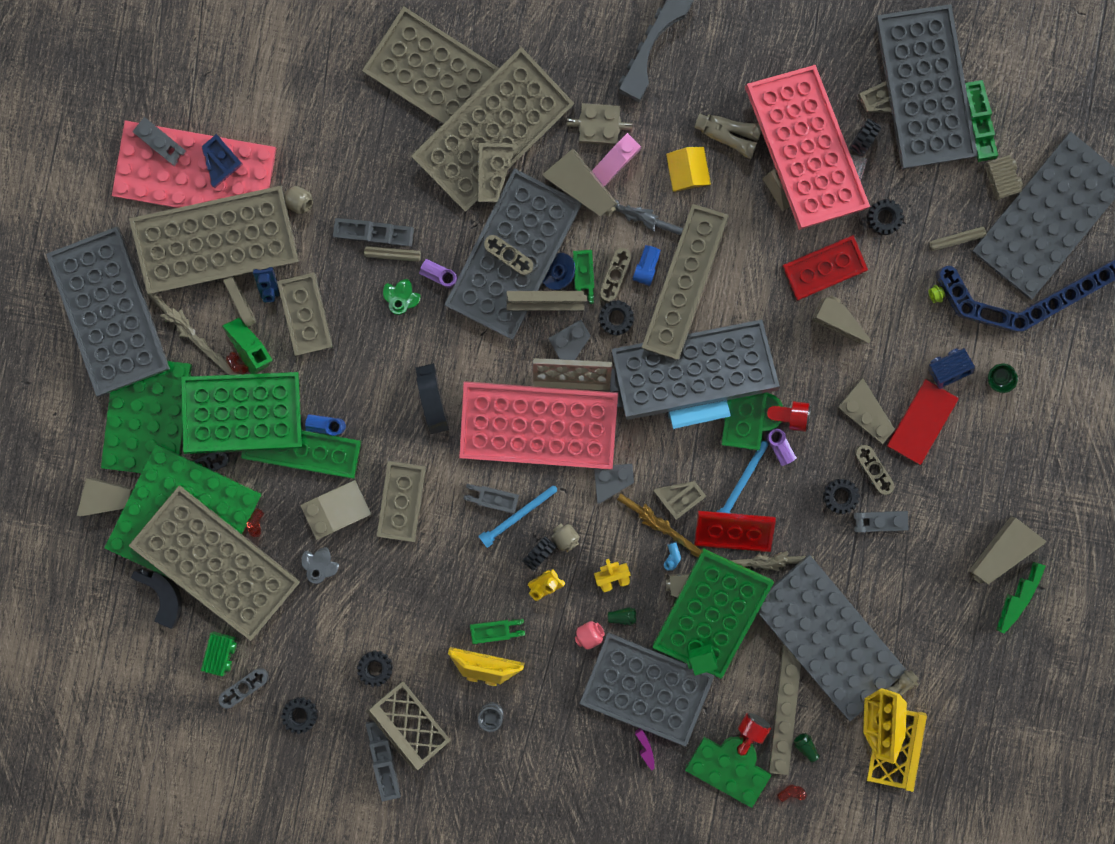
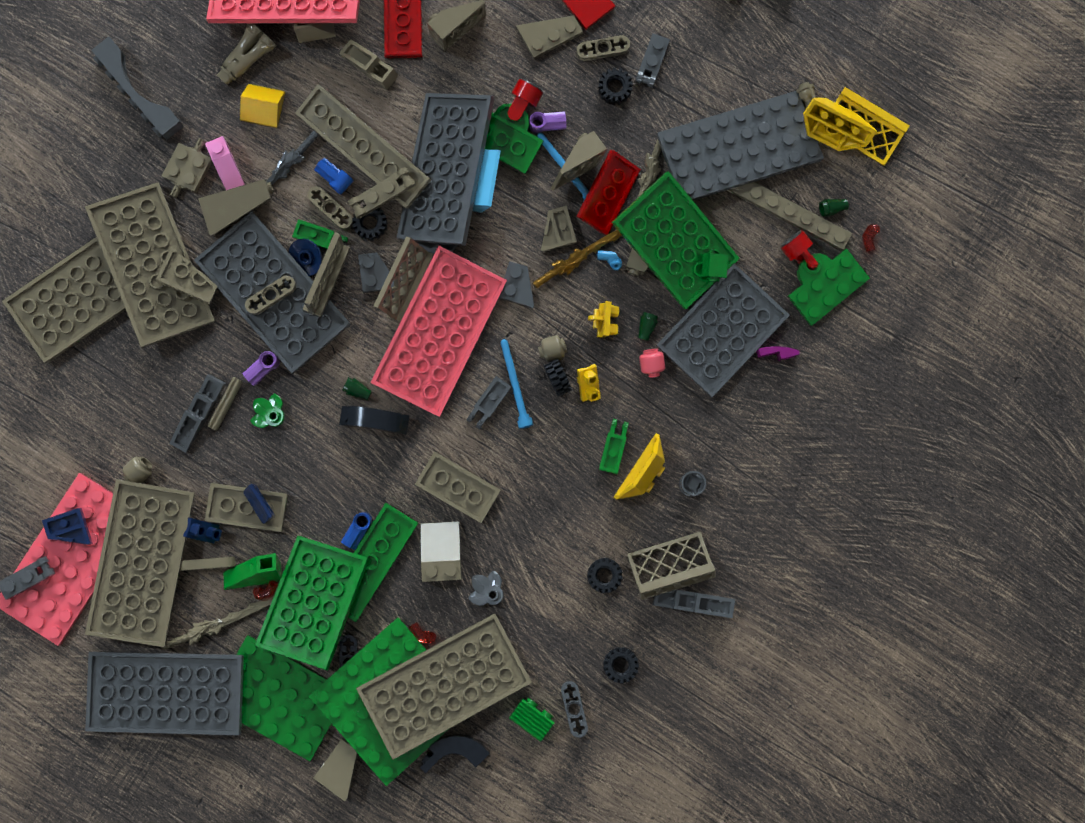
camera: 75 degrees left, 5 degrees down
(311, 325) = (258, 503): none -> dark blue slope
(454, 370) = (357, 389): none -> dark green cone
(646, 319) = (381, 193): none -> dark tan plate
(760, 495) = (583, 158): none -> dark tan slope
(768, 253) = (369, 64): none -> dark tan slope

